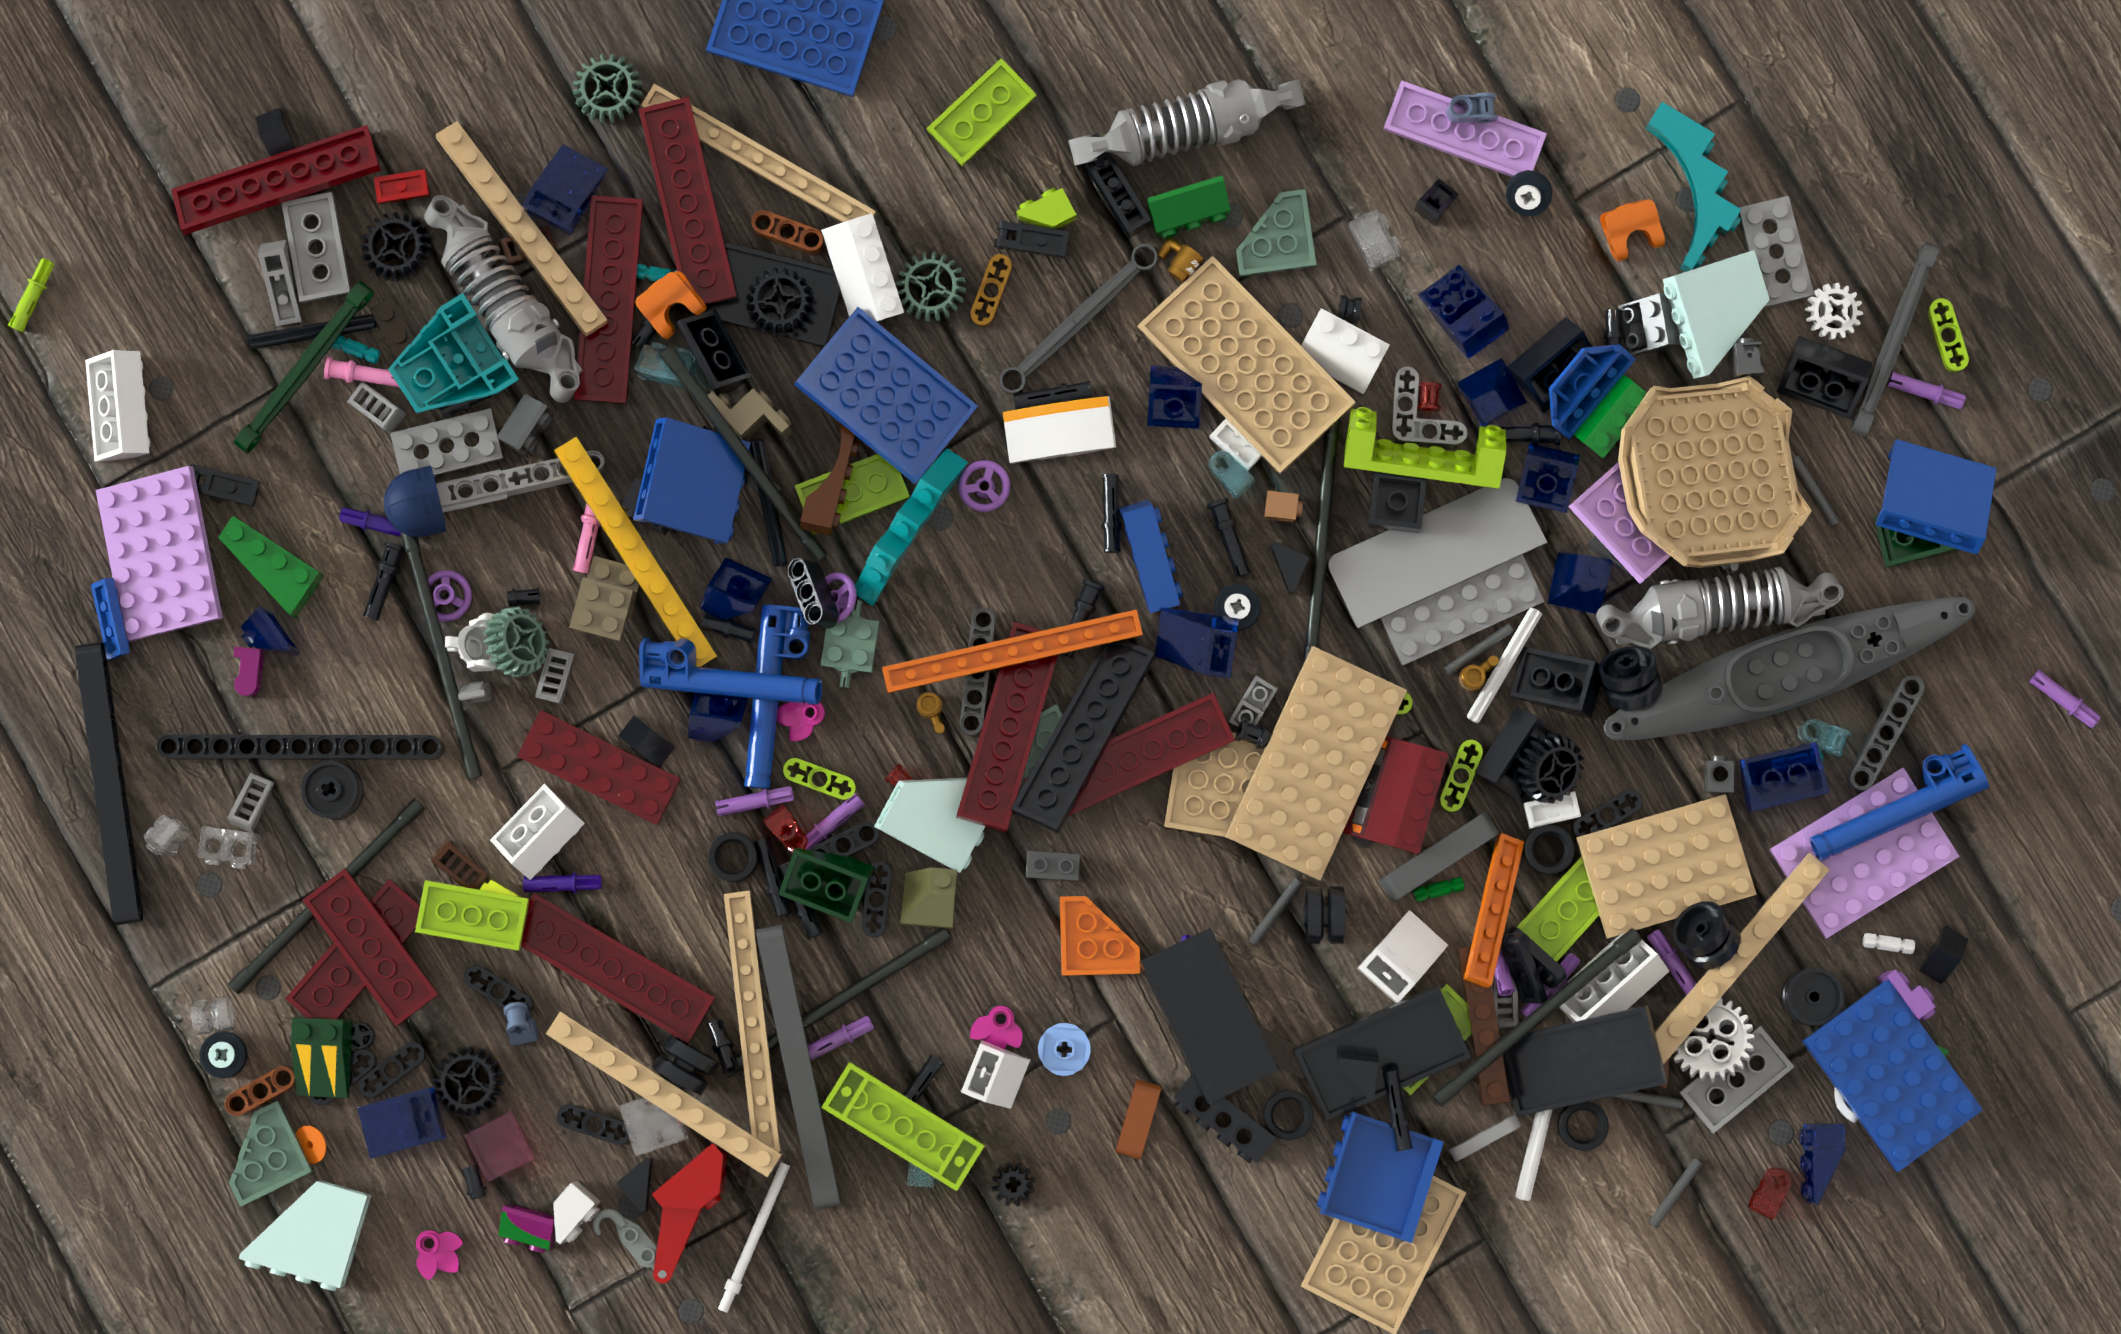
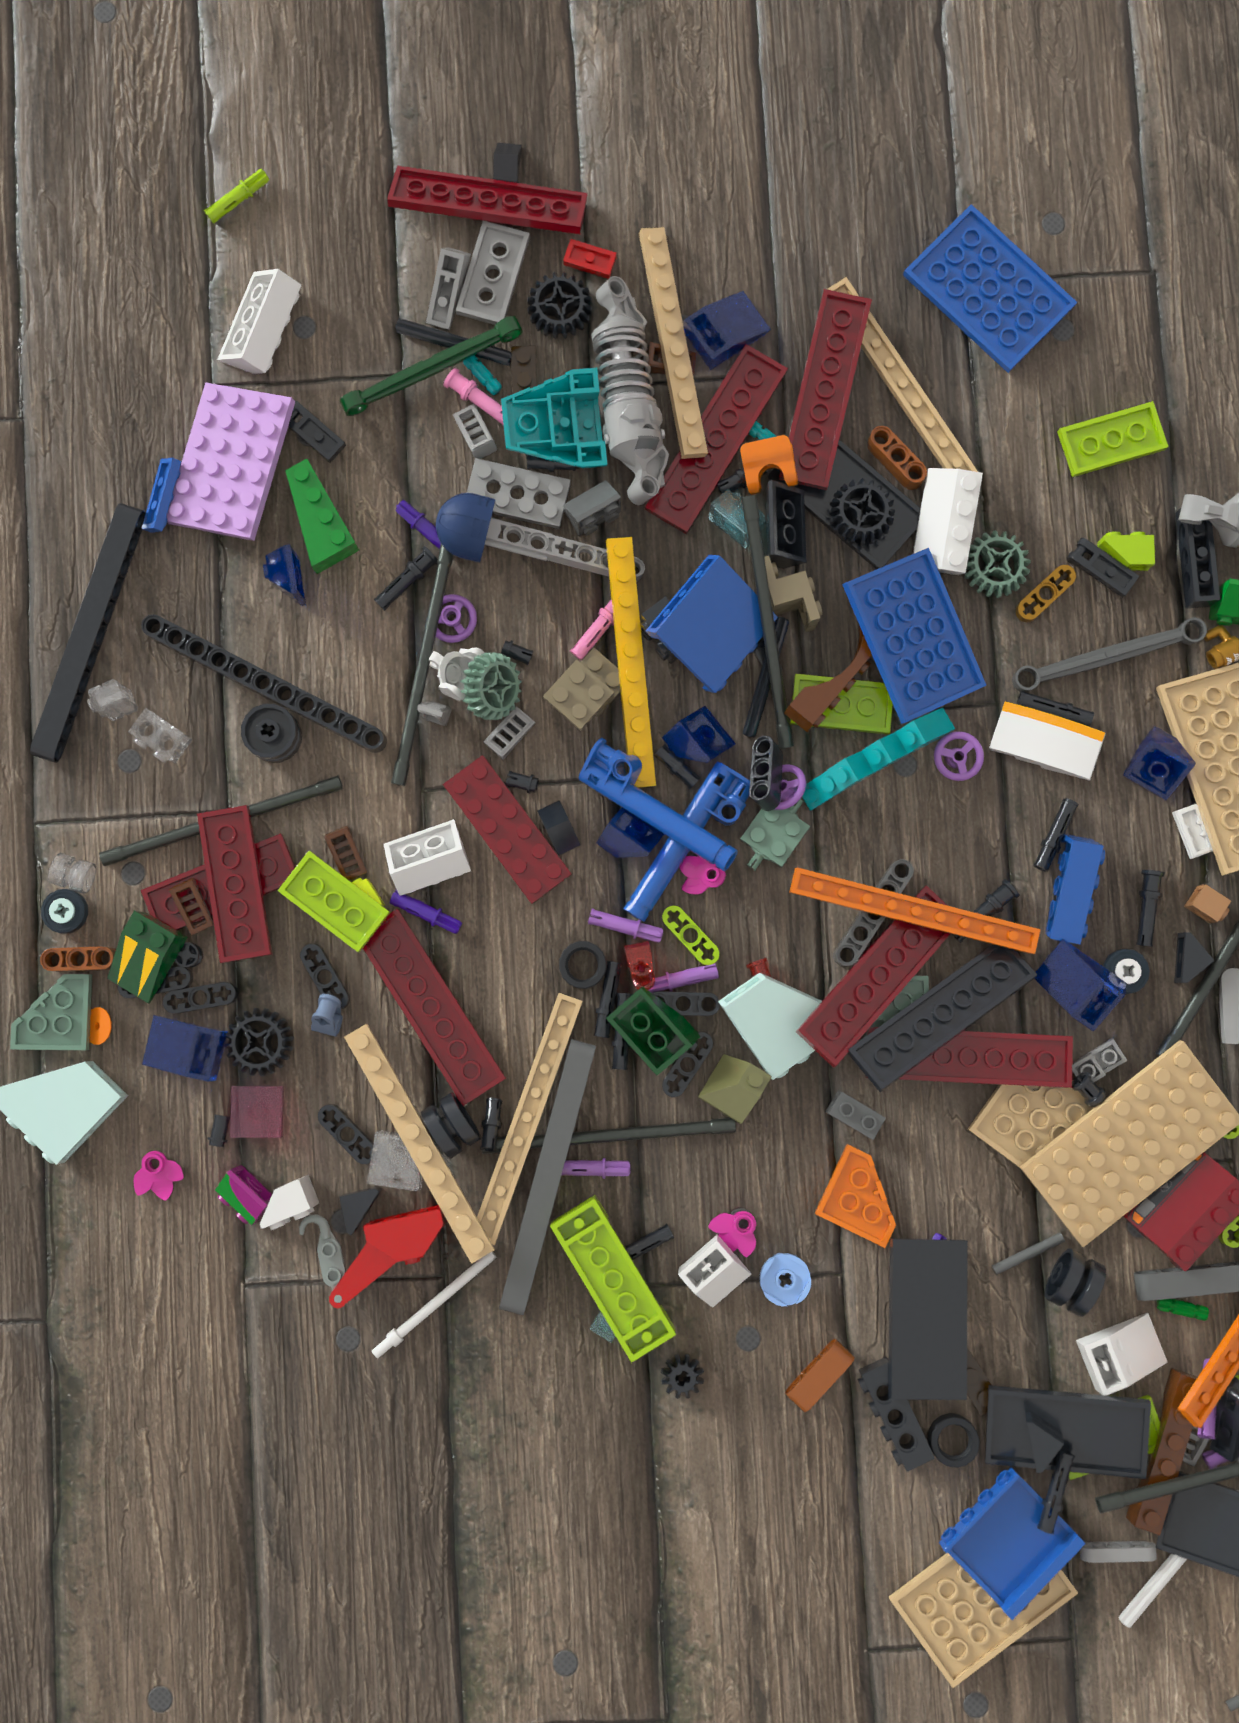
camera: 25 degrees right, 0 degrees up
(250, 671) = (255, 598): magenta leg -> none
(254, 816) = (196, 722): light grey slope -> none
(329, 967) = (191, 883): none -> reddish brown slope
(590, 715) = (522, 781): none -> black pin
(614, 81) = (821, 254): sand green gear -> none
(930, 707) = (816, 921): pearl gold piece -> none
(1235, 477) = (1177, 856): clear light blue piece -> none
(1583, 1145) = (1218, 1605): black tyre -> none

